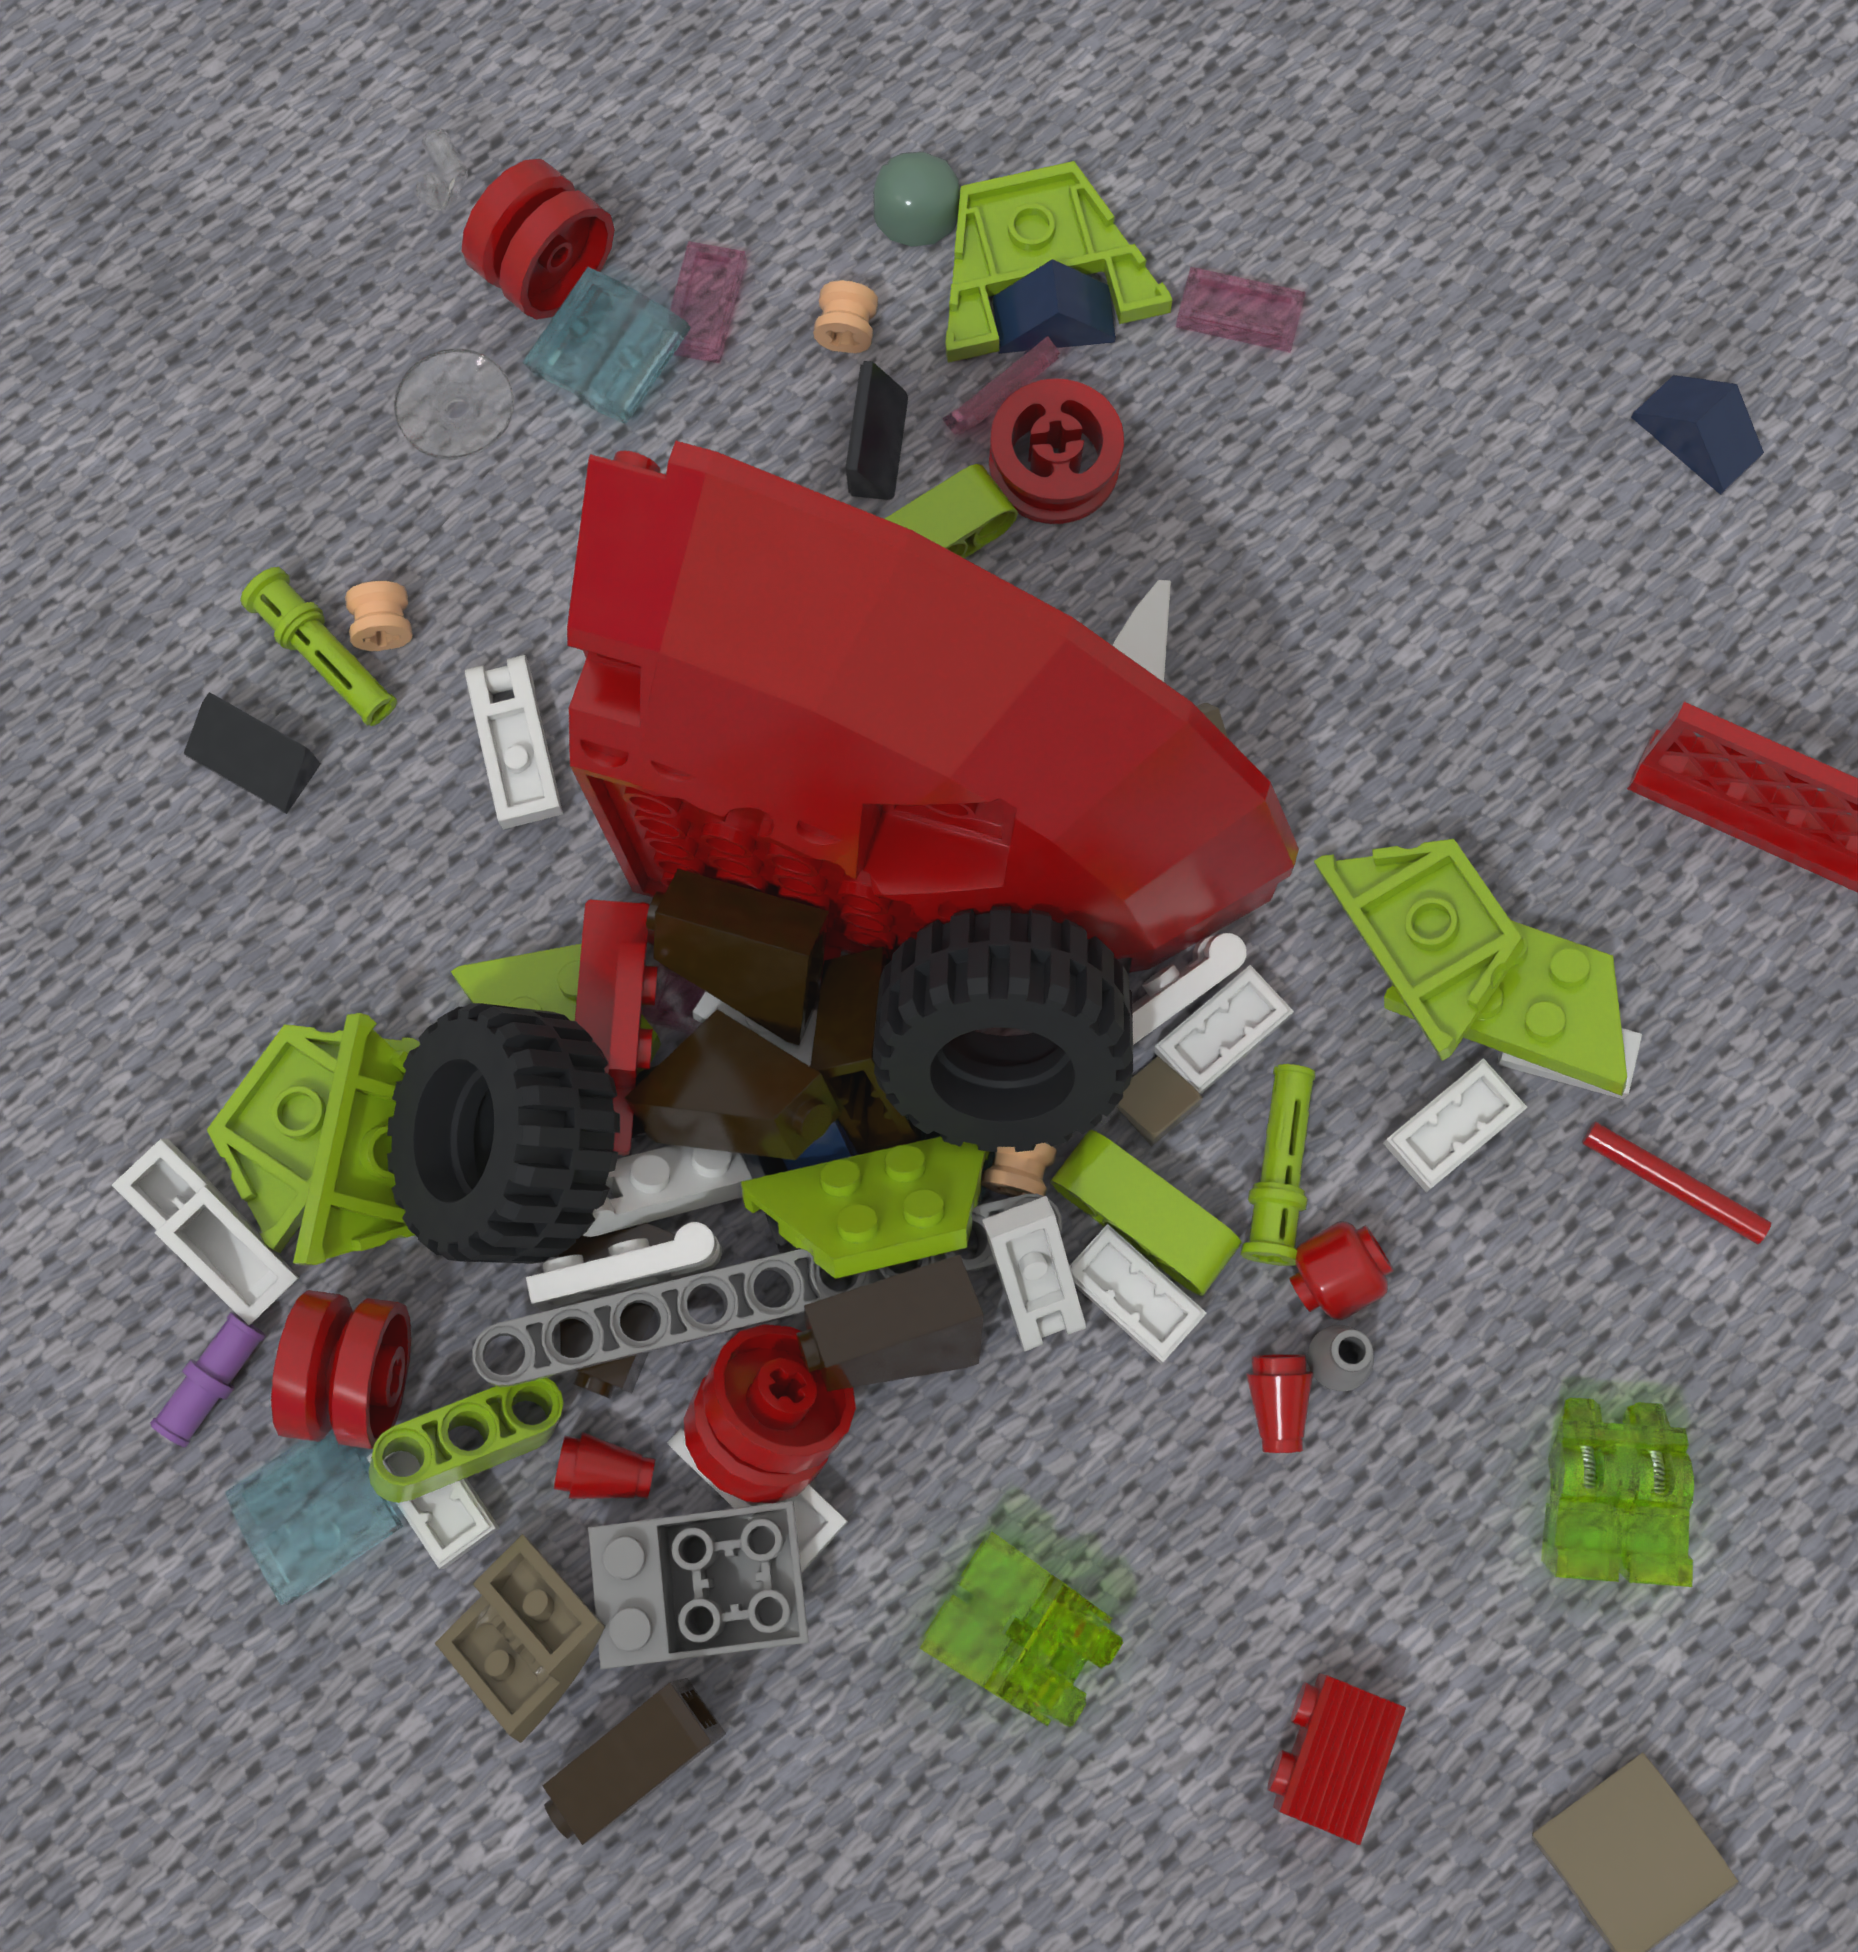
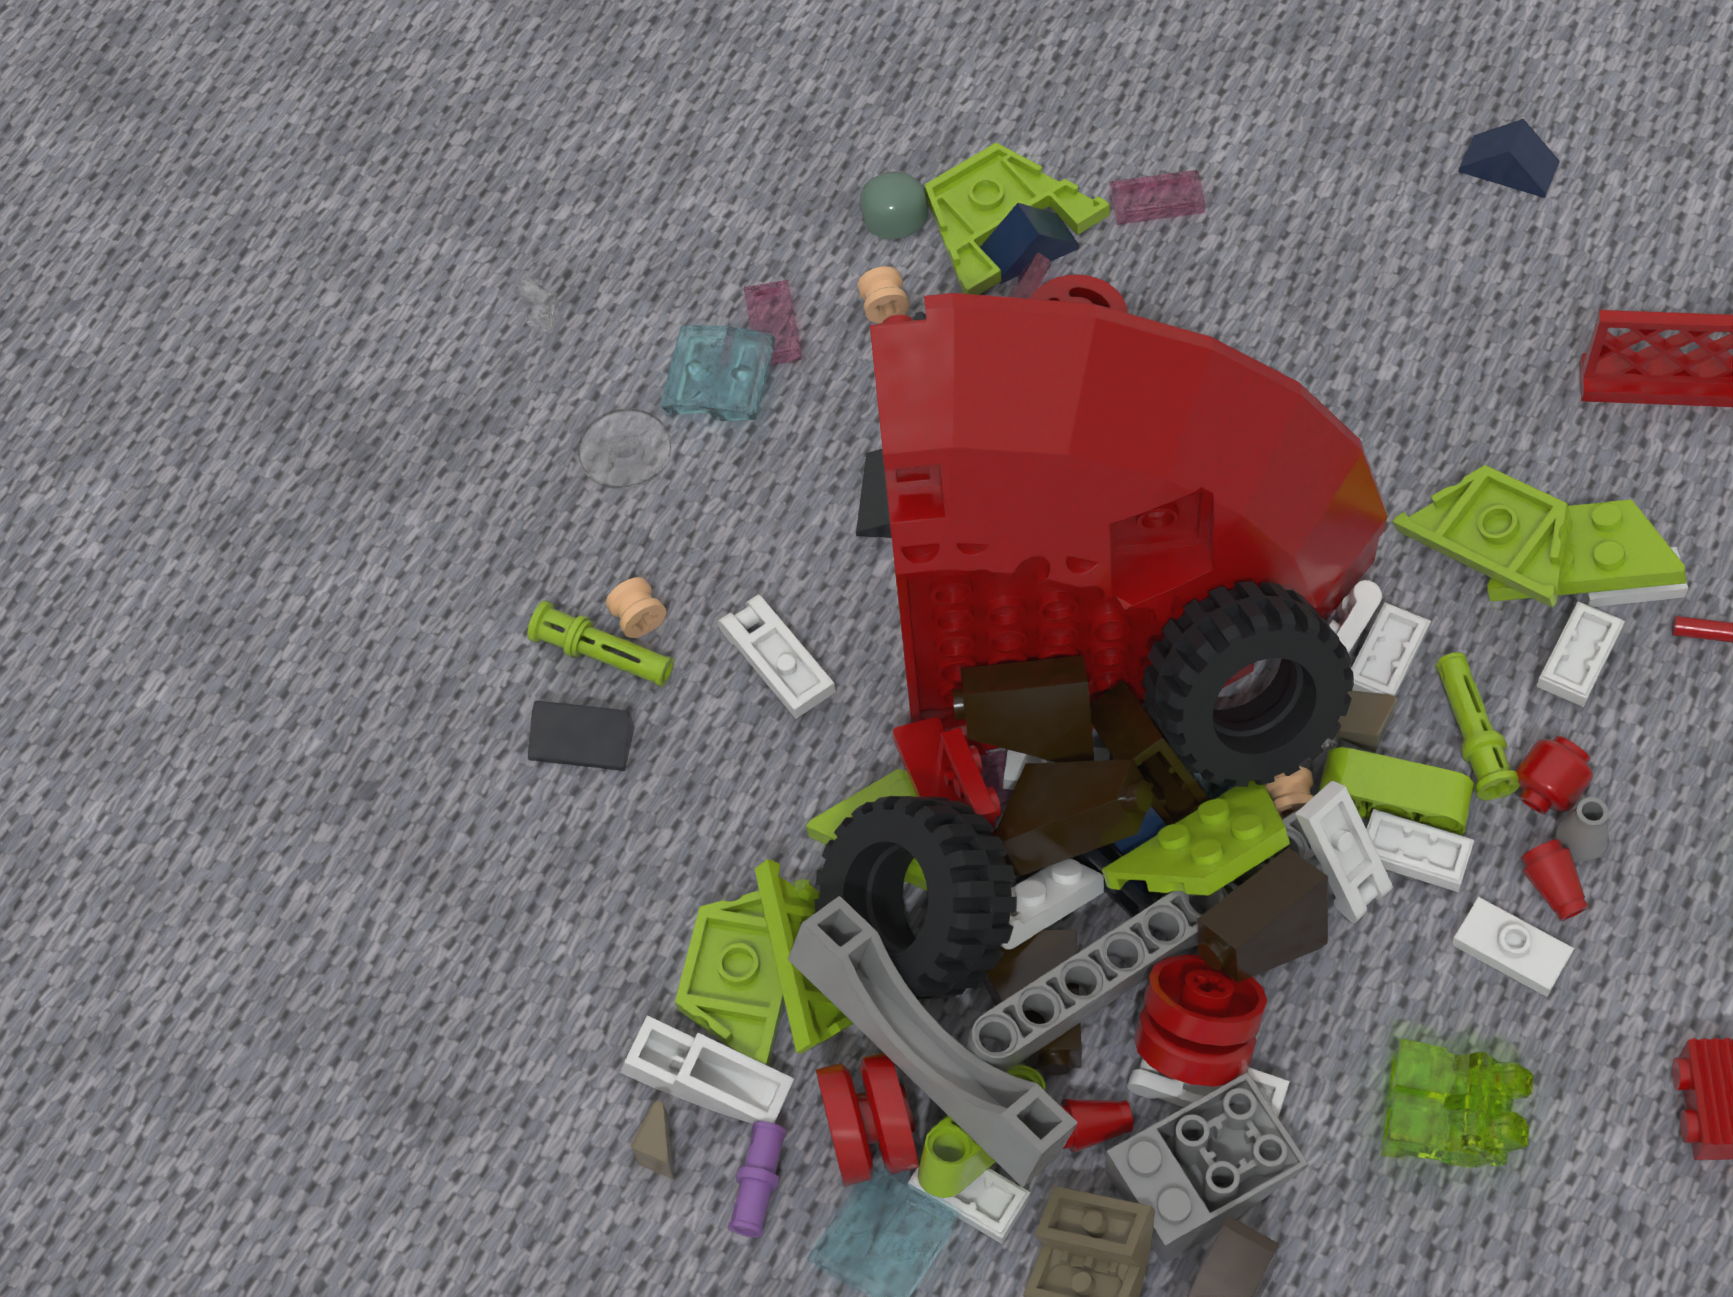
camera: 20 degrees left, 15 degrees down
(115, 1289) = (654, 1142): none -> dark tan slope
(449, 1406) = (1000, 1112): none -> light grey arch
(536, 236) = (640, 316): red wheel -> none
(628, 1267) = (1048, 952): white plate -> none
(1191, 1459) = (1512, 946): none -> white plate

